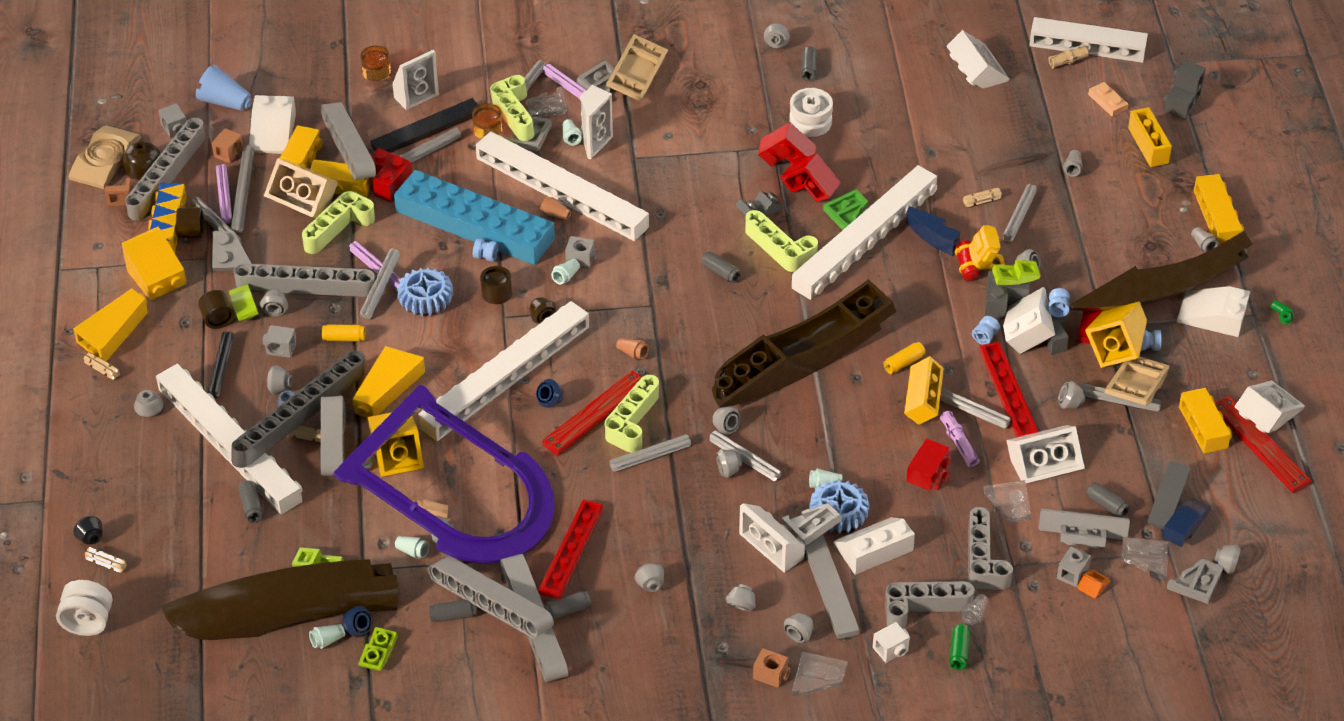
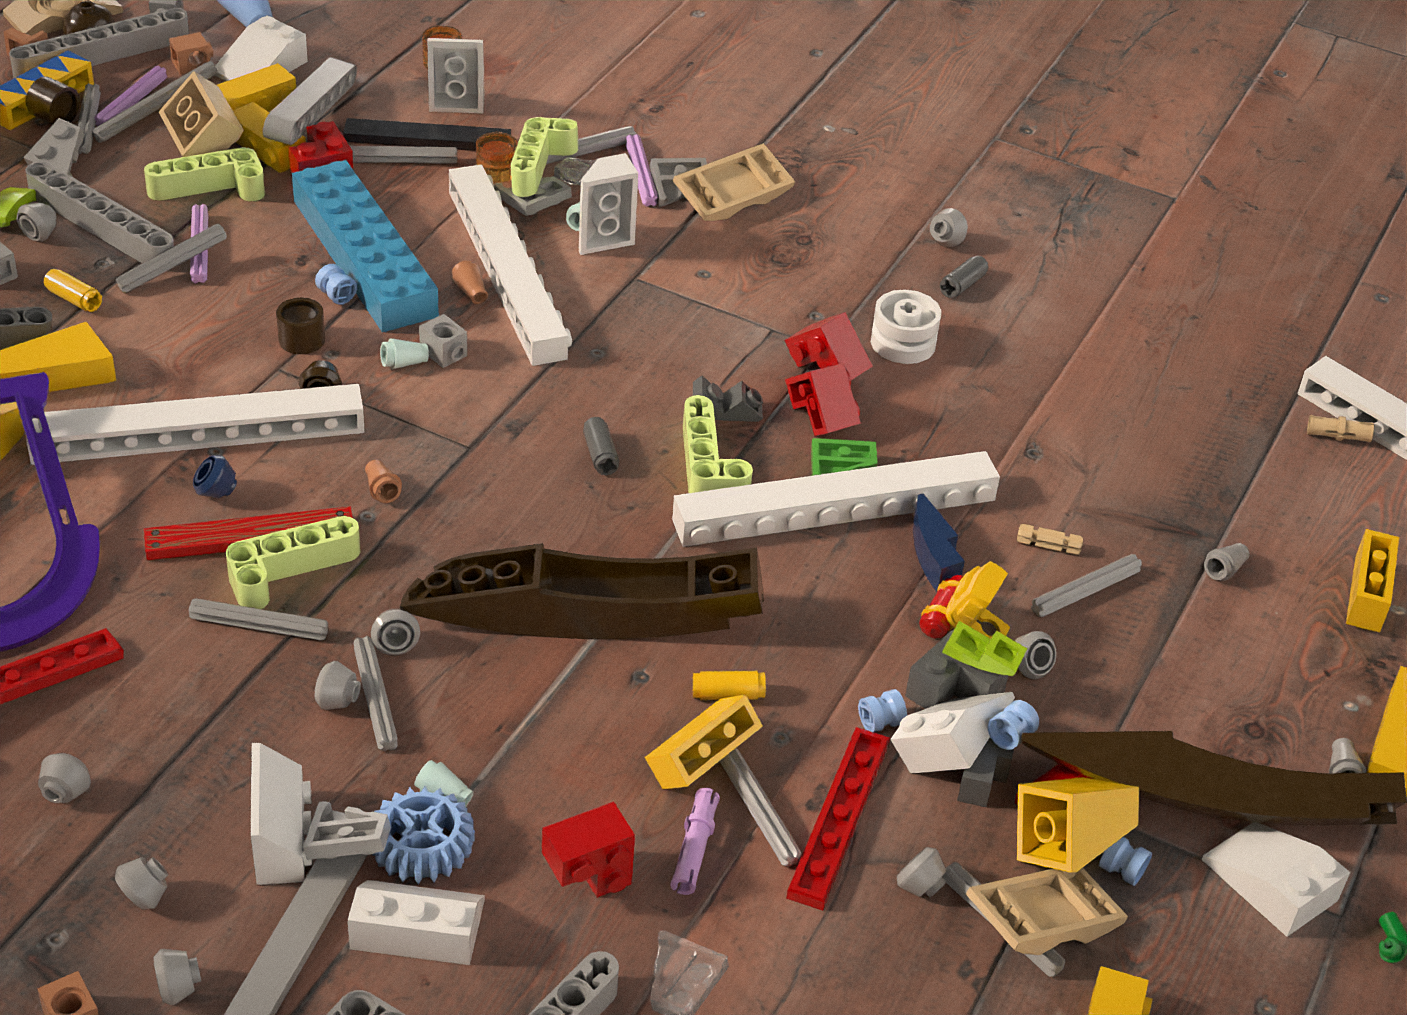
camera: 30 degrees right, 5 degrees down
(425, 291) = (213, 292): light blue gear -> none
(976, 61) = (1198, 374): white slope -> none
(1046, 453) = (802, 937): white slope -> none
(1108, 99) = (1356, 506): light nougat plate -> none

